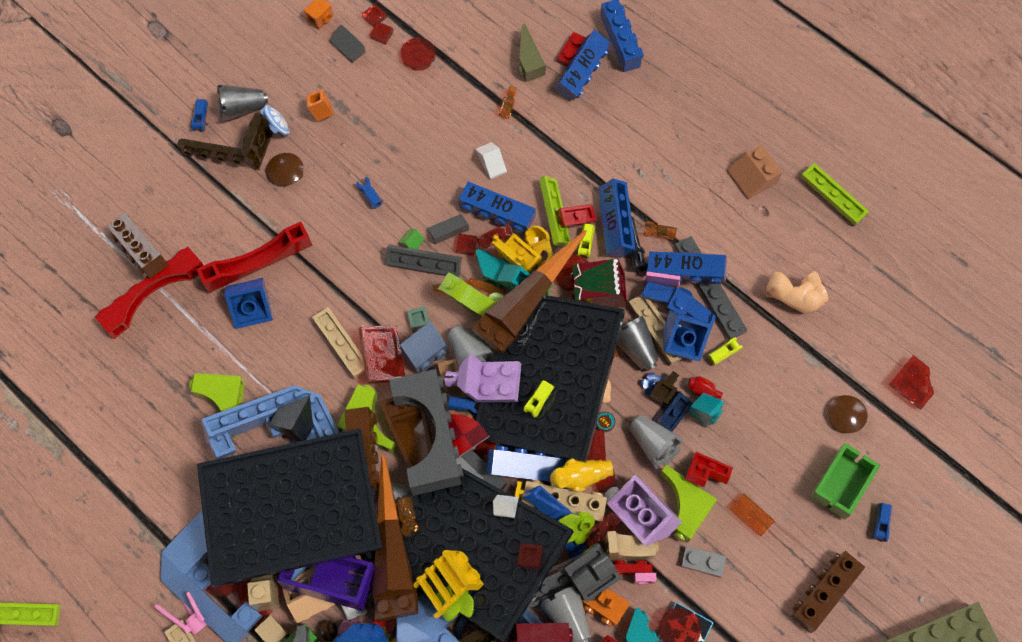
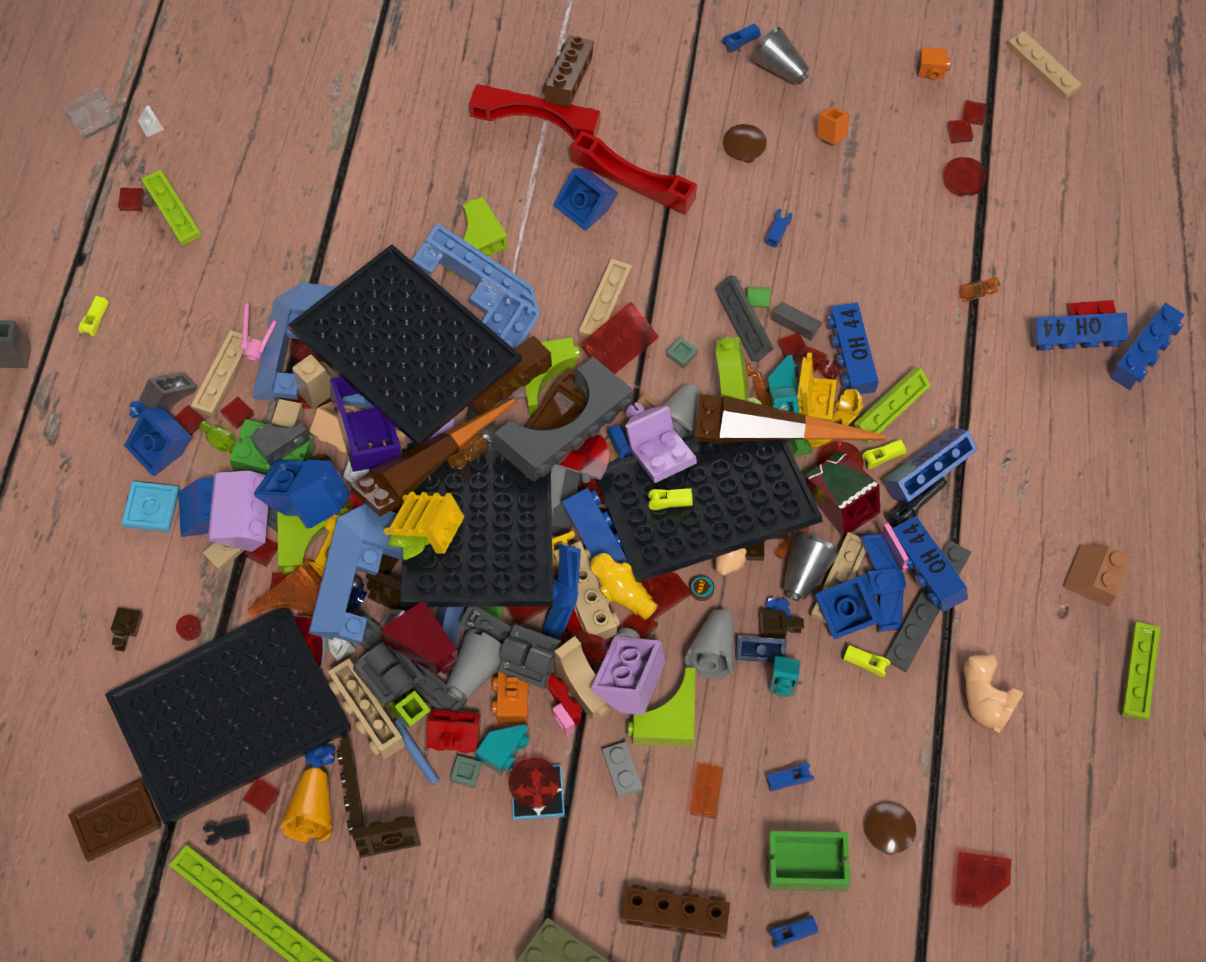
camera: 55 degrees right, 5 degrees down
(252, 151) = (738, 99): dark brown bracket -> none
(276, 120) = (785, 99): light blue dish -> none
(294, 419) = (497, 304): black slope -> none
(347, 43) = (921, 109): dark grey slope -> none
(423, 348) = (652, 371): sand blue slope -> none
(492, 160) = (902, 313): white slope -> none
(505, 506) = (536, 528): white slope -> none
(530, 61) = (1045, 276): olive slope -> none
(530, 556) = (499, 576): clear red tile -> none
(576, 215) = (903, 426): red plate -> none
(580, 524) = (565, 614): lime plate -> none
(660, 231) = (953, 519): clear orange bar -> none
(702, 385) = (809, 662): red plant -> none
(705, 467) = (723, 710): red plate -> none
(775, 457) = (786, 778): none -> blue bar

